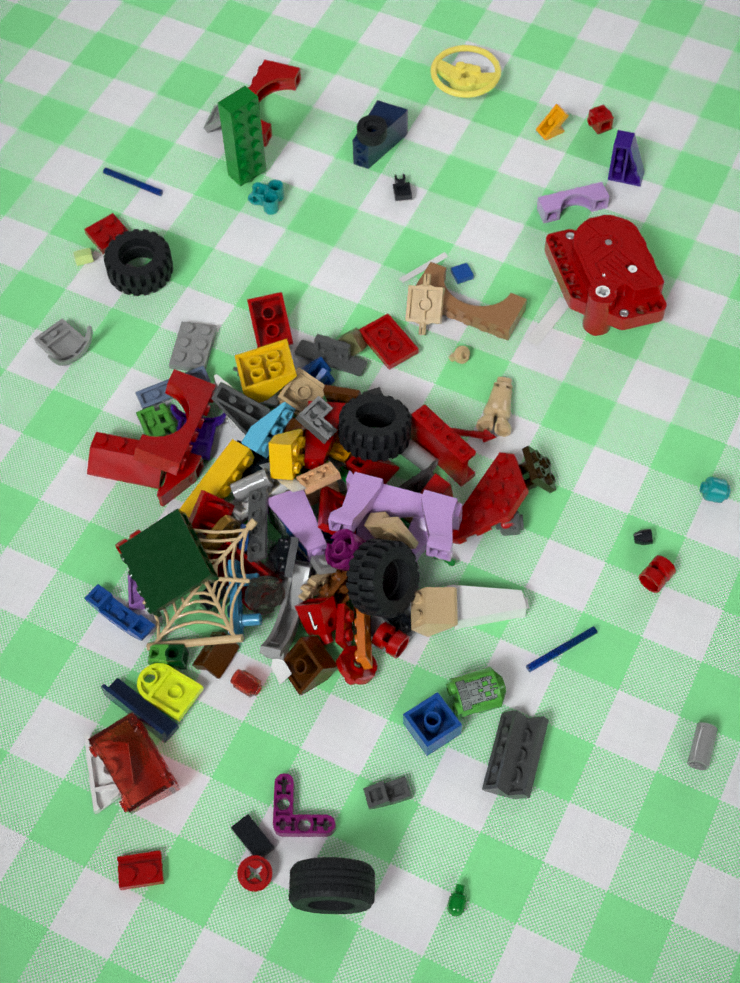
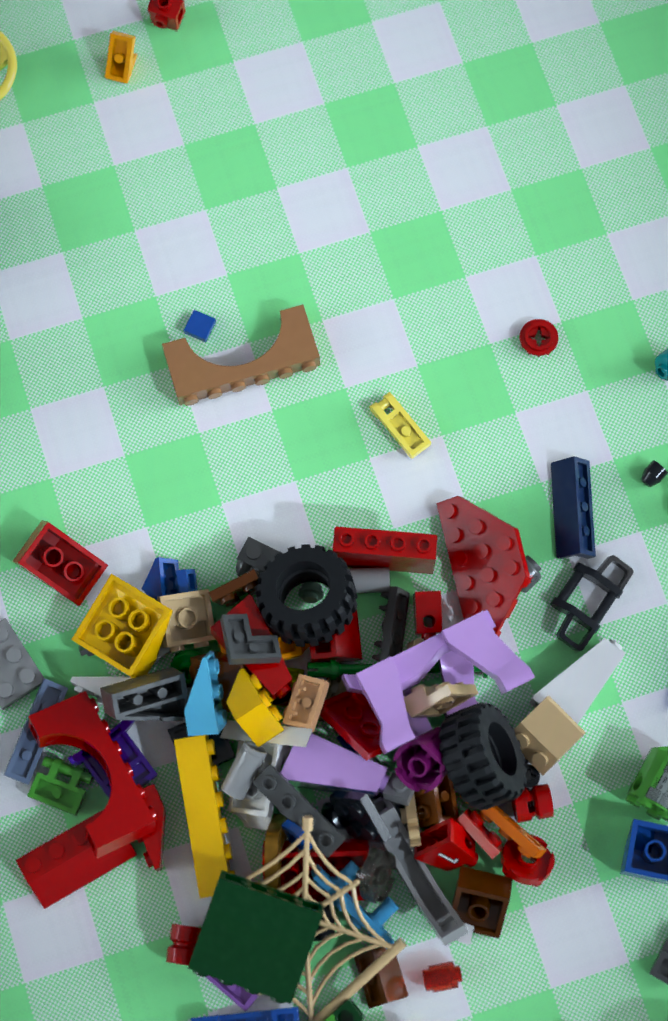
camera: 45 degrees left, 15 degrees up
(209, 511) = (236, 841): red plate -> none
(334, 352) = (163, 542): dark grey bracket -> none
(355, 339) = (170, 510): olive panel -> none
(388, 341) = (205, 475): red plate -> none
(402, 190) = (37, 276): black plate -> none
(423, 267) = (151, 352): white sticker -> none
(425, 304) = (207, 402): tan plate -> none
(460, 355) = (292, 426): tan plate -> none
(485, 435) = (403, 498): red piece -> none
(498, 406) = (388, 454): tan piece -> none
(520, 400) = (400, 425): none -> light yellow plate
(538, 469) = (492, 488): dark brown plate -> none
(548, 322) = (339, 307): white sticker -> none
(552, 560) = (591, 624): none -> black bar
(577, 516) = (573, 508): none -> dark blue panel
(591, 197) = (247, 118): lavender arch -> none
(607, 274) = (363, 206): red piece -> none
(626, 160) = (246, 47): dark purple wedge -> none
(647, 411) = (546, 330): none -> red gear

